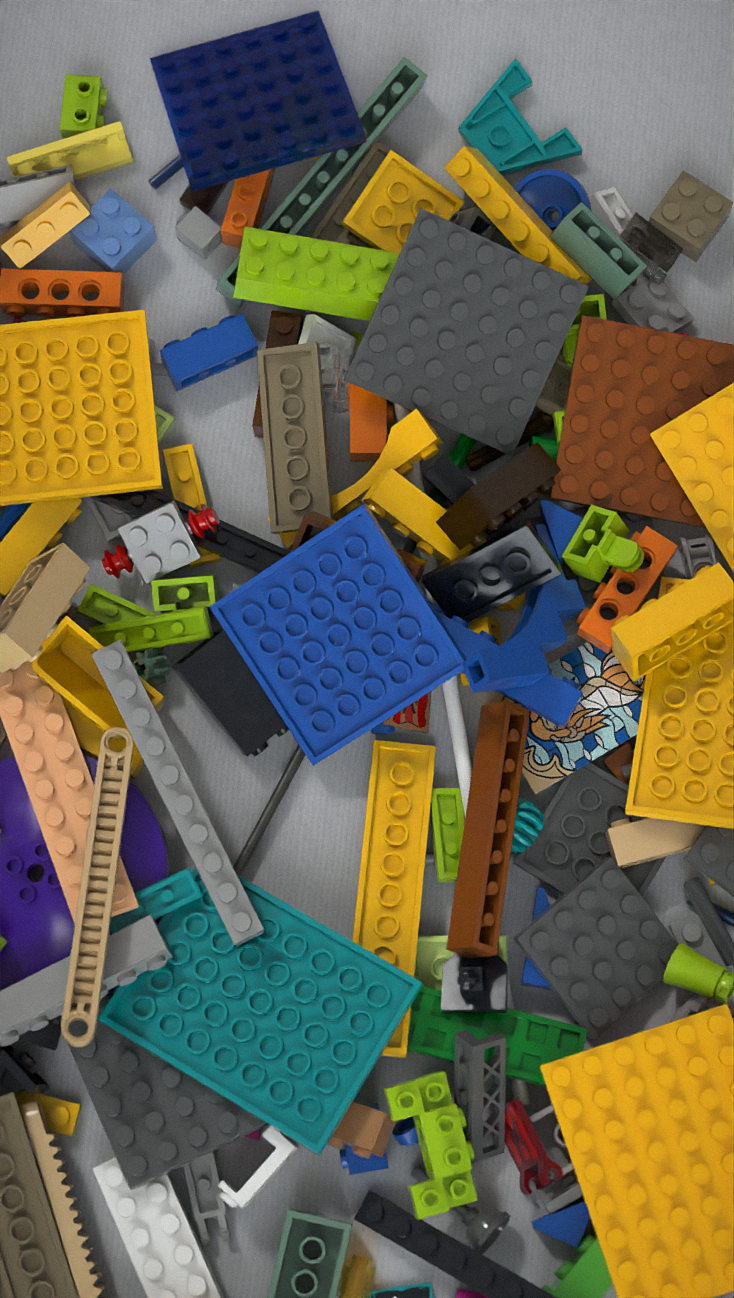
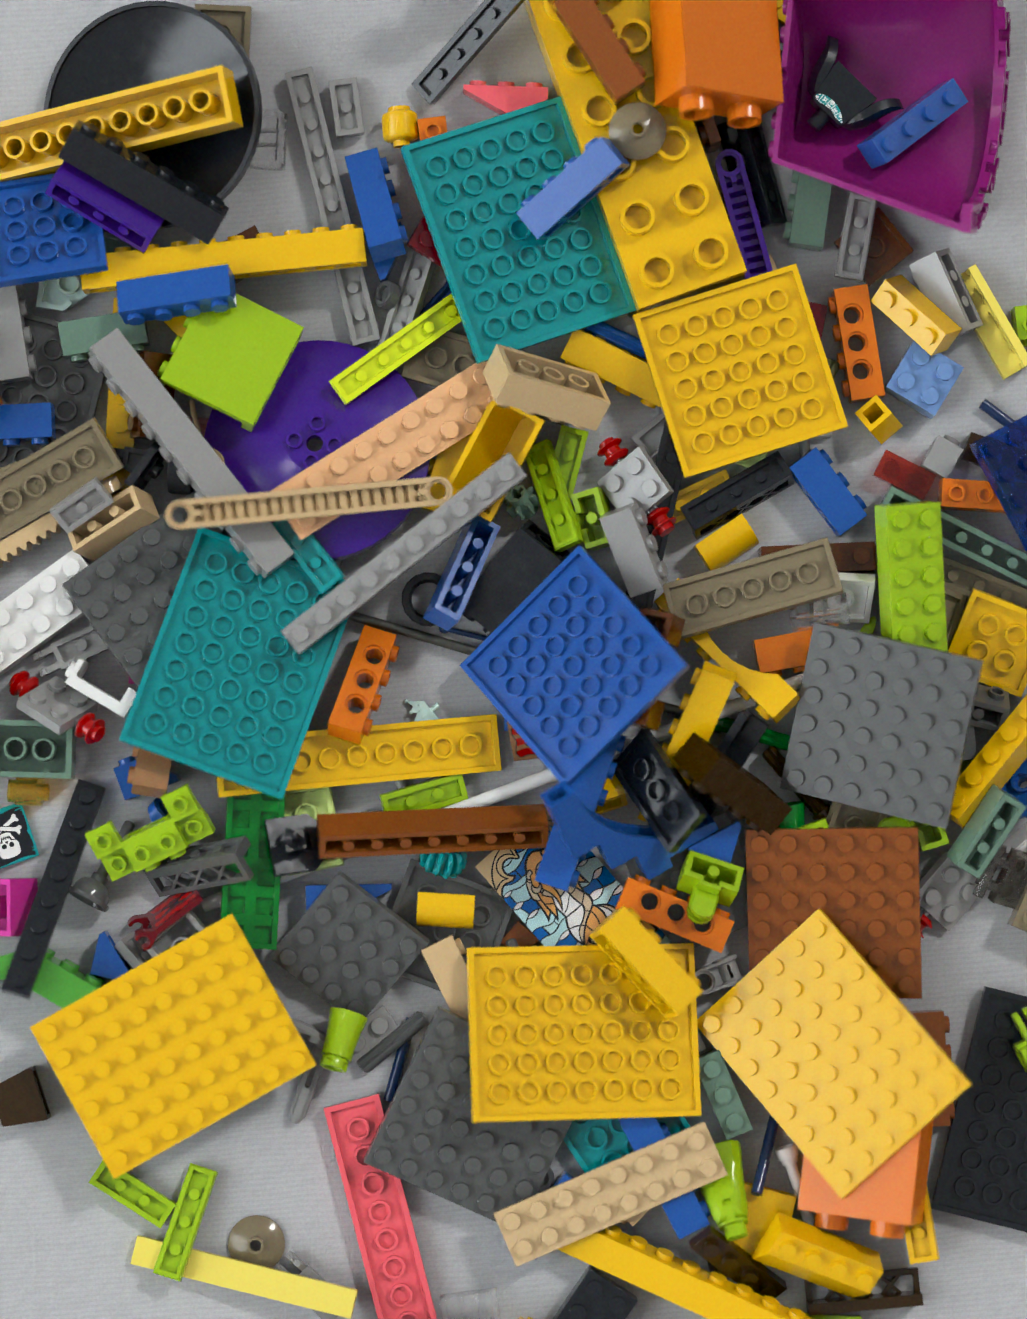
camera: 70 degrees right, 10 degrees up
(45, 1148) = (81, 505): none -> light grey plate
(73, 1119) = (115, 523): none -> tan brick
(145, 284) = (878, 419): none -> yellow brick
(192, 442) = (737, 495): none -> black fence
(203, 278) = (904, 475): none -> clear red plate
(214, 743) = (461, 573): none -> blue brick
(217, 772) = (408, 590): none -> black tyre
(226, 552) = (634, 549): none -> light grey brick
(241, 465) = (727, 543): none -> yellow brick
(266, 1224) = (57, 706): none -> light grey plate
(269, 779) = (464, 633): none -> dark blue hinge
(350, 899) = (371, 644): none -> orange brick
(353, 819) = (423, 711): none -> light aqua piece
(577, 833) = (445, 910): none -> yellow brick

